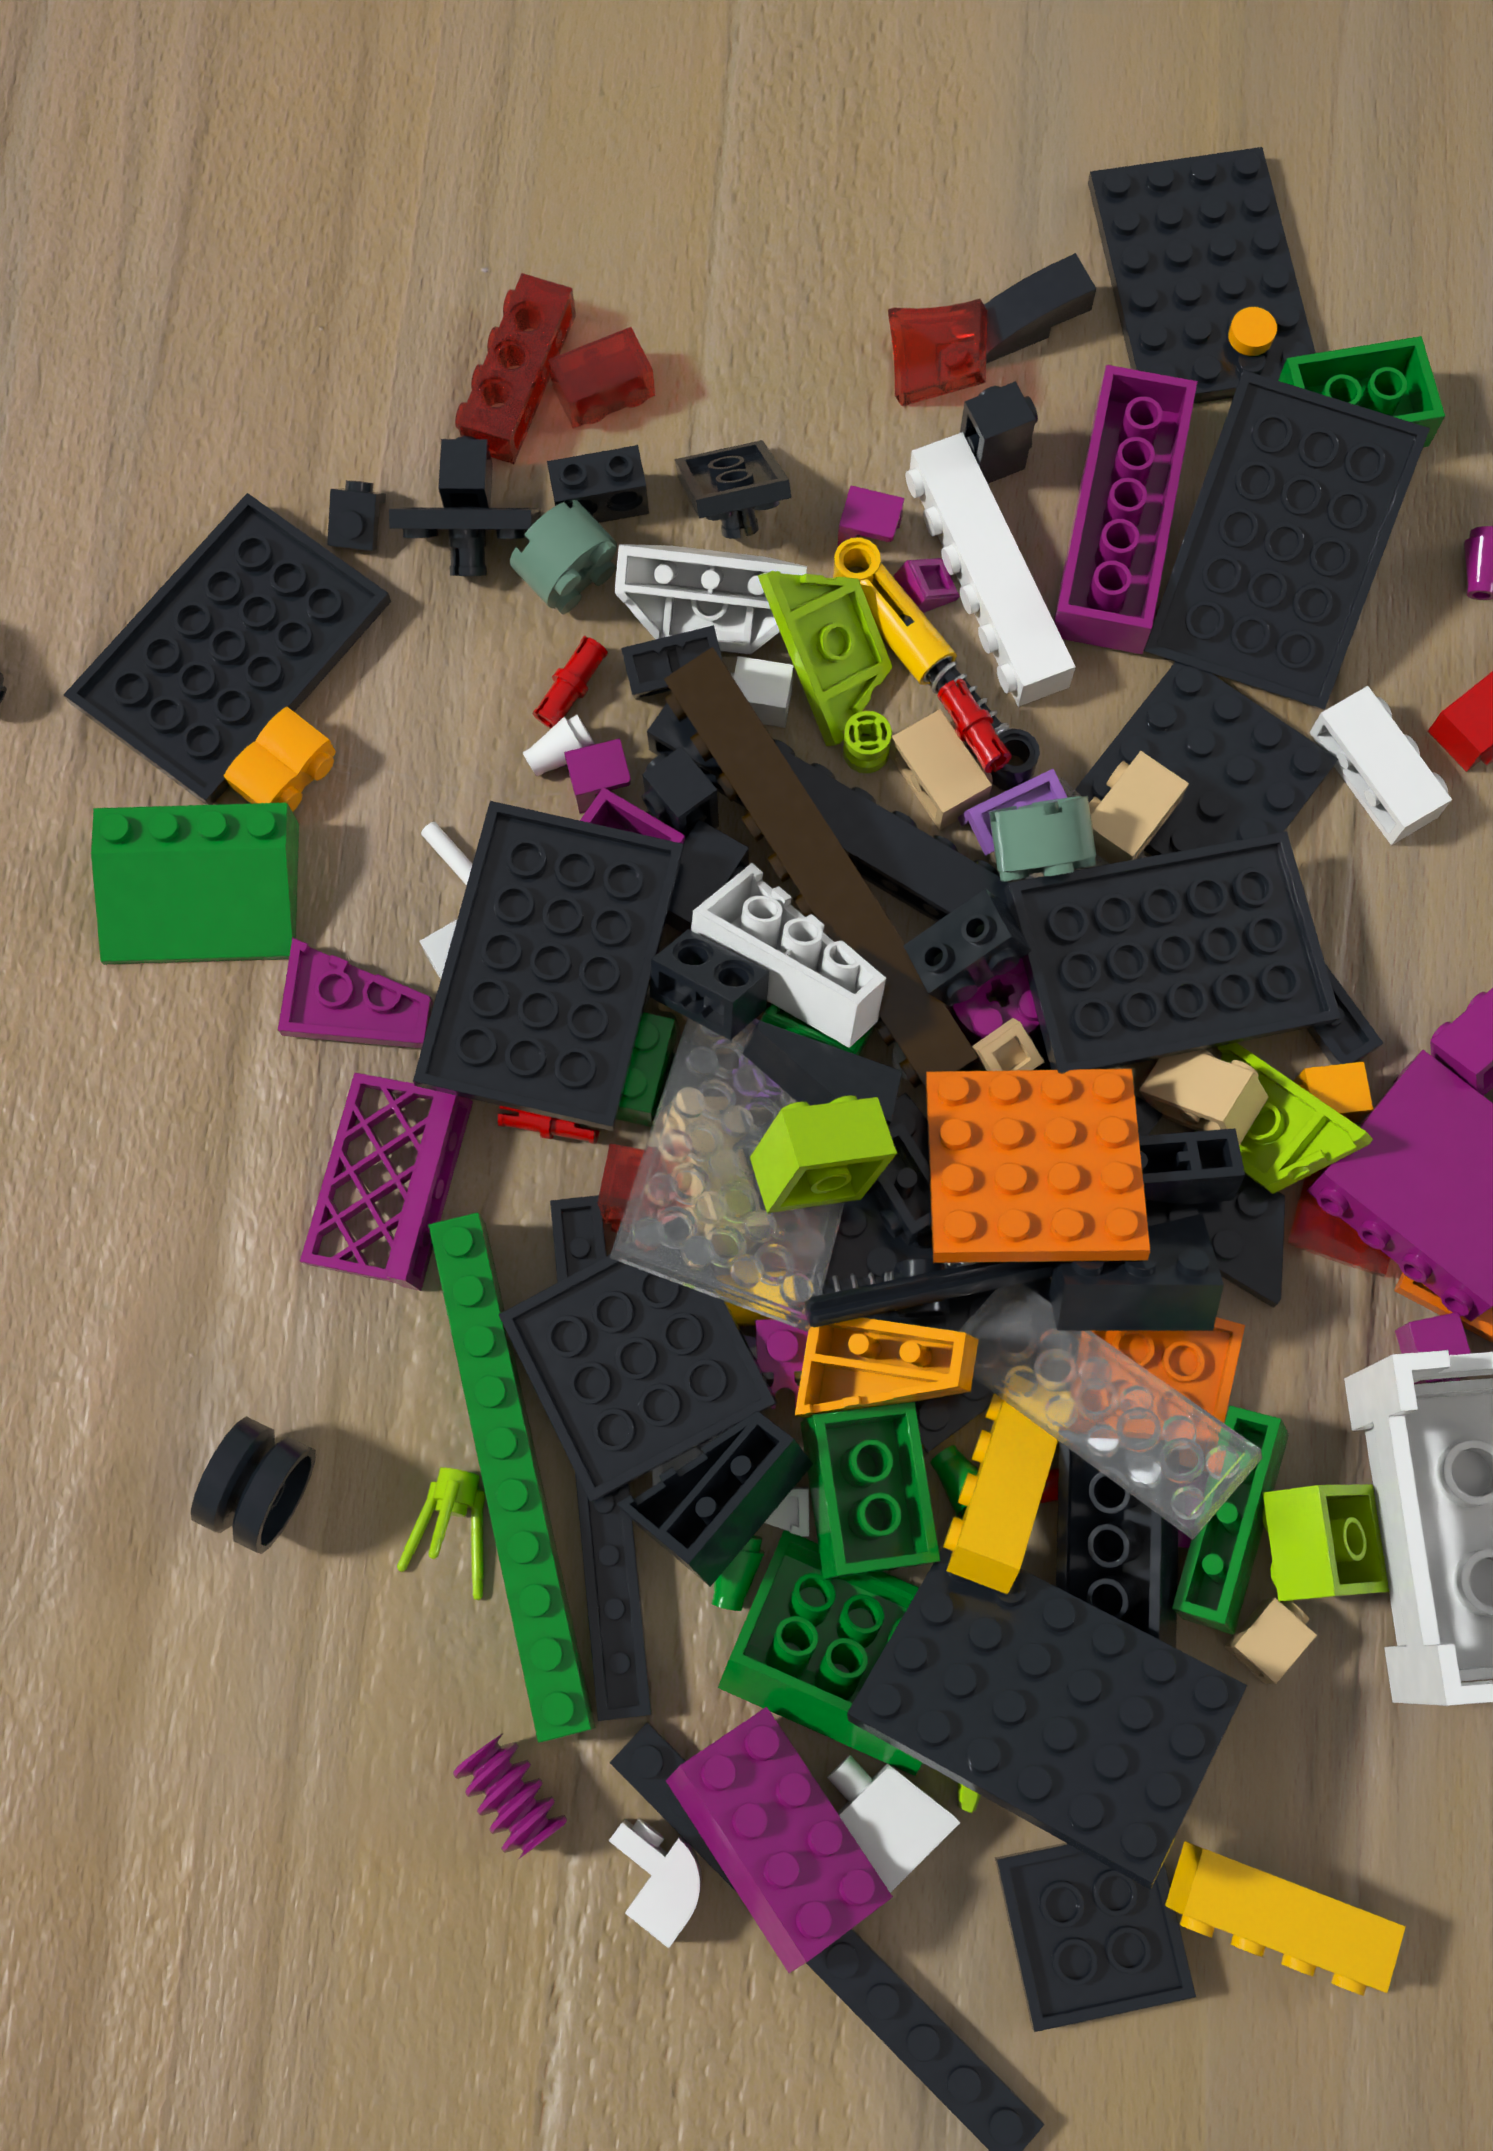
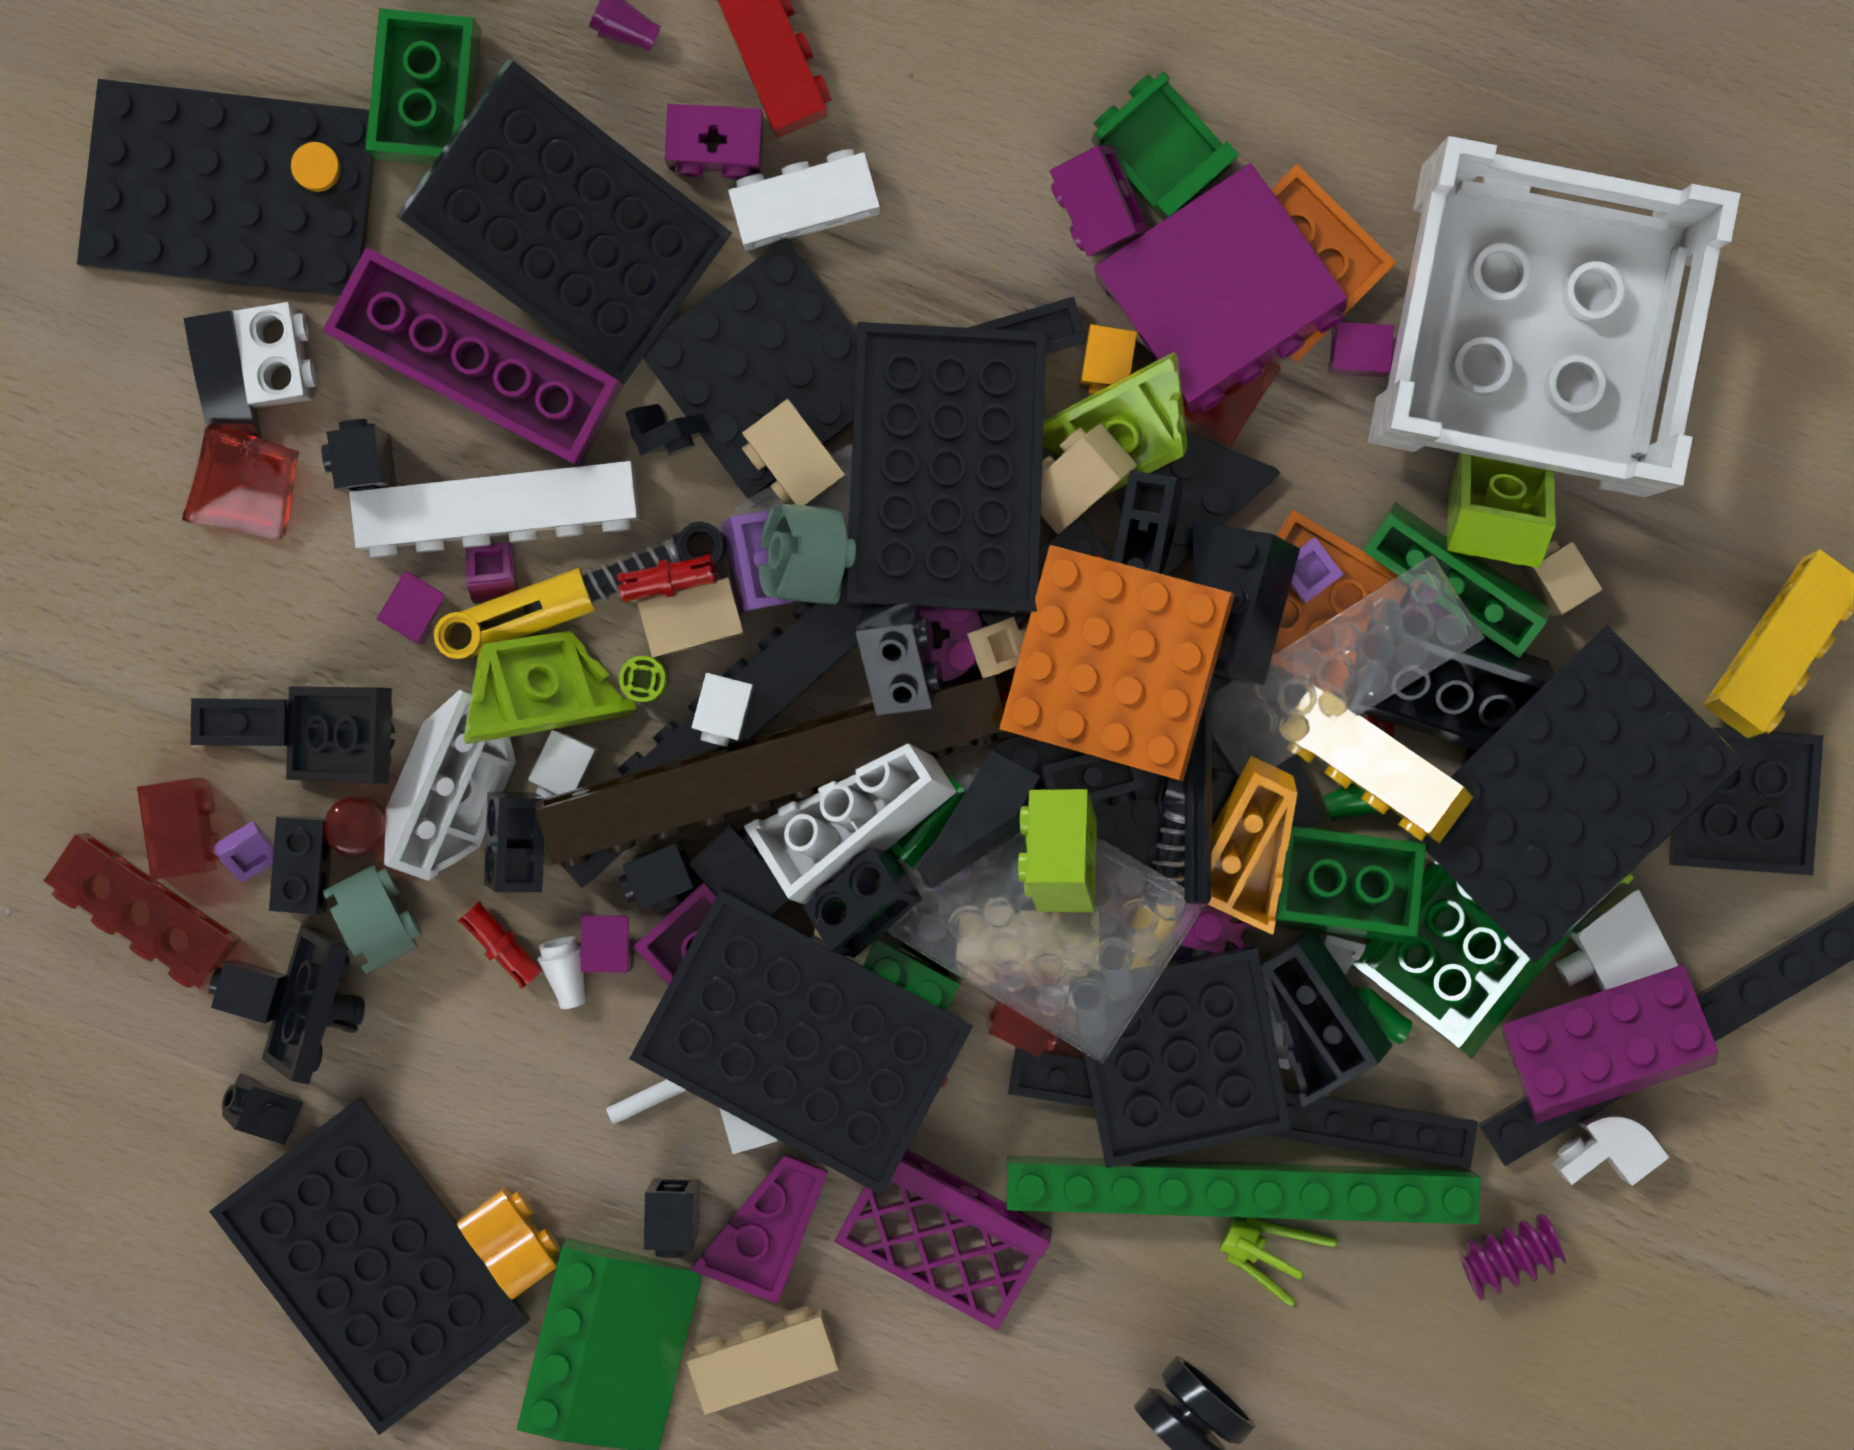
camera: 80 degrees left, 15 degrees up
(217, 1032) = (762, 1359): none -> tan brick
(341, 899) = (671, 1216): none -> black brick
(595, 434) = (246, 851): none -> medium lavender plate
(648, 519) = (355, 826): none -> clear red head
(716, 405) = (239, 722): none -> black plate
(863, 805) = (722, 709): none -> white brick
(1061, 338) = (262, 359): none -> white brick
(1113, 696) = (656, 435): none -> black bracket
(1190, 1357) = (1313, 571): none -> medium lavender plate
(1408, 667) = (693, 124): none -> magenta brick

